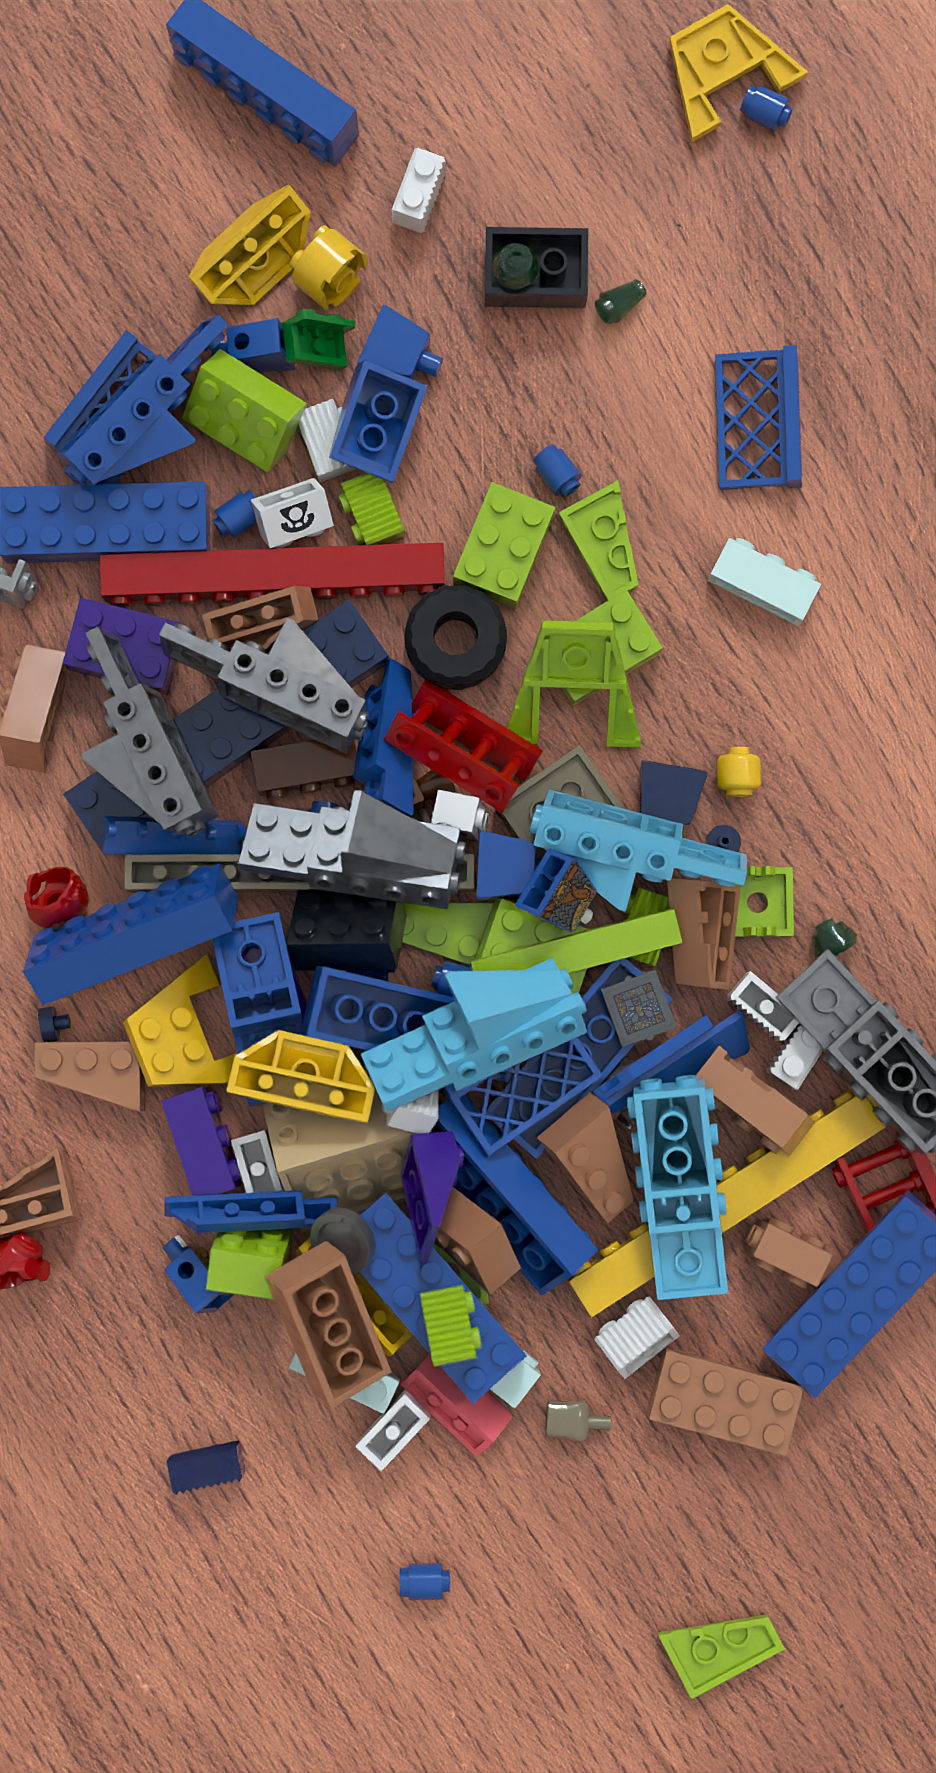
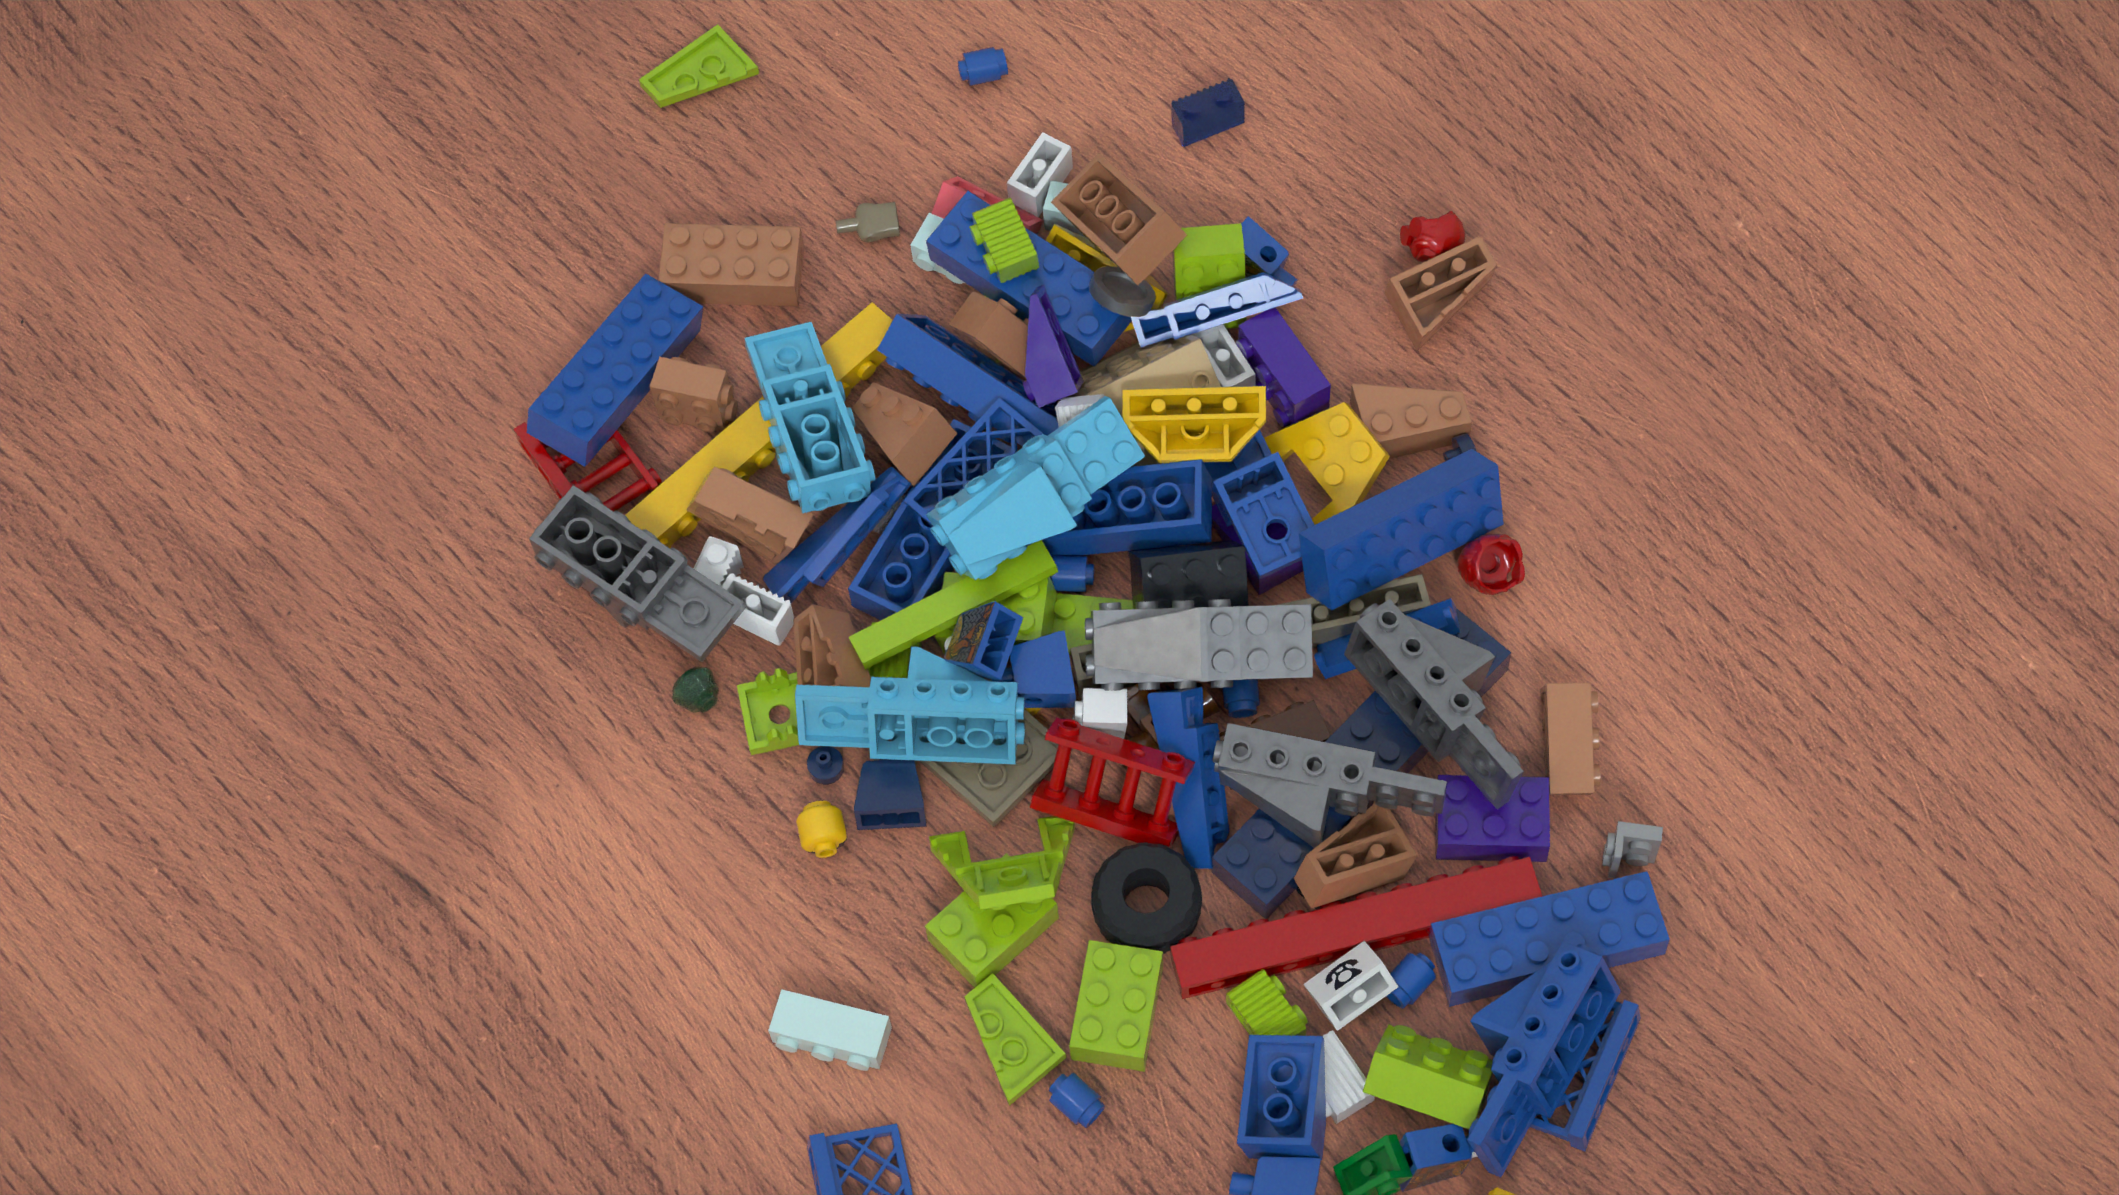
camera: 175 degrees right, 20 degrees down
(636, 1336) = (827, 298): white brick -> none
(638, 1008) = (880, 570): piece -> none

